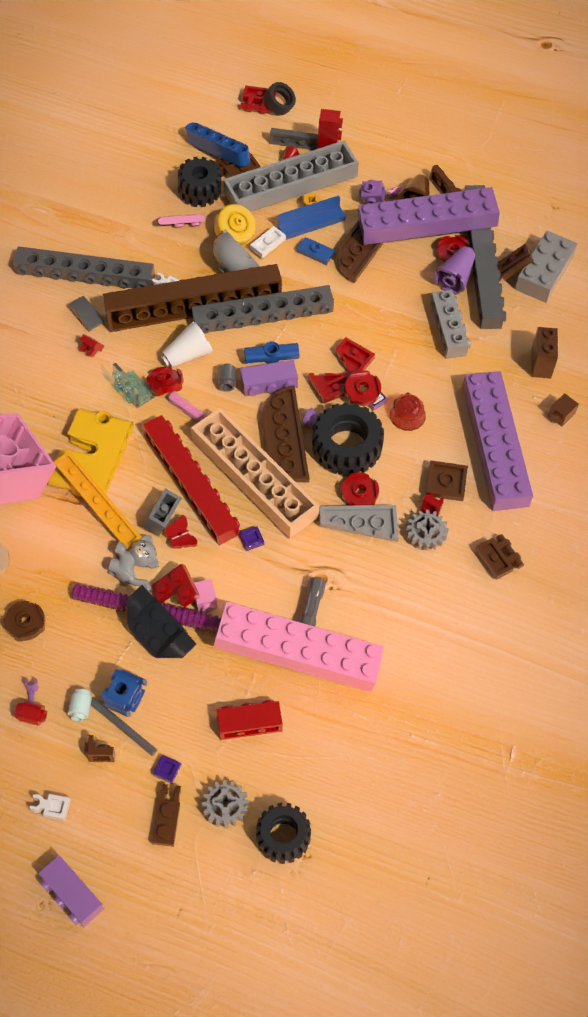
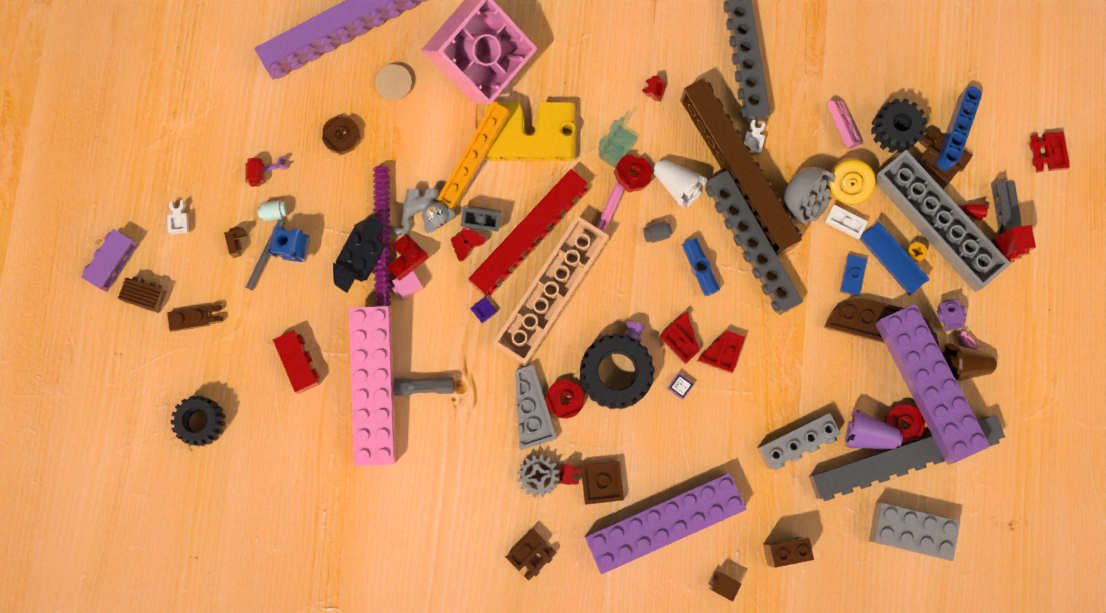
camera: 75 degrees right, 20 degrees up
(86, 313) = (692, 69): dark grey slope -> none
(123, 863) = (142, 295): none -> reddish brown brick
(167, 769) = (236, 304): dark purple tile -> none
(216, 804) = (211, 355): light grey gear -> none
(268, 377) = (668, 273): medium lavender brick -> none
(273, 104) = (1066, 183): black tyre -> none
(285, 435) = (607, 308): reddish brown plate -> none
(364, 378) = (672, 366): red plate -> none
(408, 412) = (673, 425): clear red helmet -> none
(441, 181) = (993, 394): reddish brown hinge -> none
(515, 262) = (904, 495): reddish brown plate -> none

